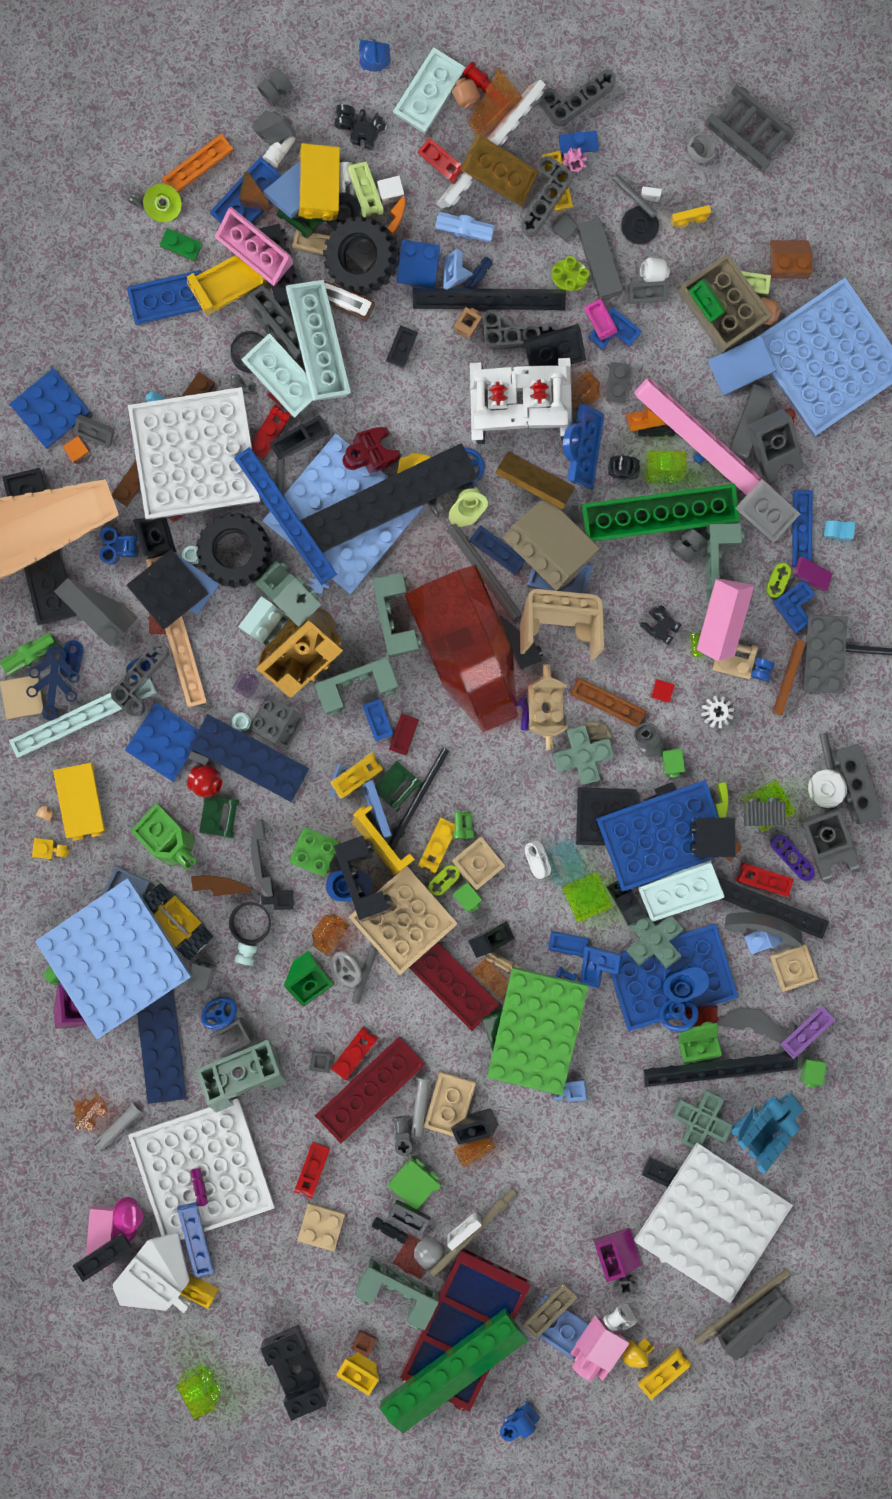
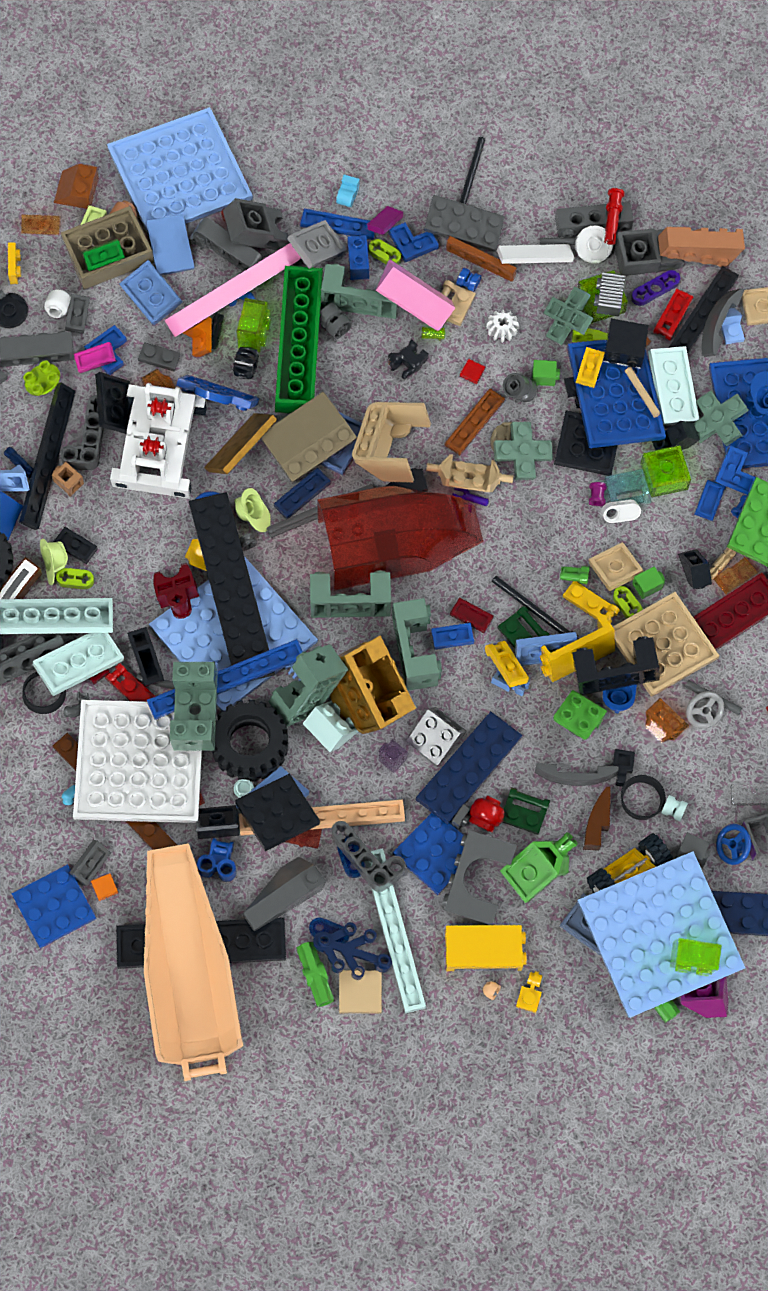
camera: 80 degrees left, 20 degrees down
(86, 993) = (695, 956): none -> clear neon green brick
(166, 781) = (475, 847): none -> dark grey arch
(223, 493) = (194, 686): none -> sand green plate
(241, 721) = (428, 770): light aqua plate -> none
(307, 979) = (708, 749): green slope -> none
(373, 353) = (76, 574): none -> lime beam
(384, 330) = (54, 558): none -> yellowish green piece
(552, 834) = (597, 494): none -> magenta bush
(663, 862) = (642, 392): none -> tan bar
(679, 805) = (590, 367): none -> yellow plate
(685, 358) = (151, 292): none -> medium blue tile
(737, 775) = (568, 315): none -> sand green plate
(742, 233) = (40, 224): none -> clear orange slope
(764, 555) = (358, 257): none -> blue brick
(803, 731) = (535, 253): none -> white tile
(842, 896) = (701, 245): none -> nougat wedge
(868, 802) = (613, 208): none -> red pin

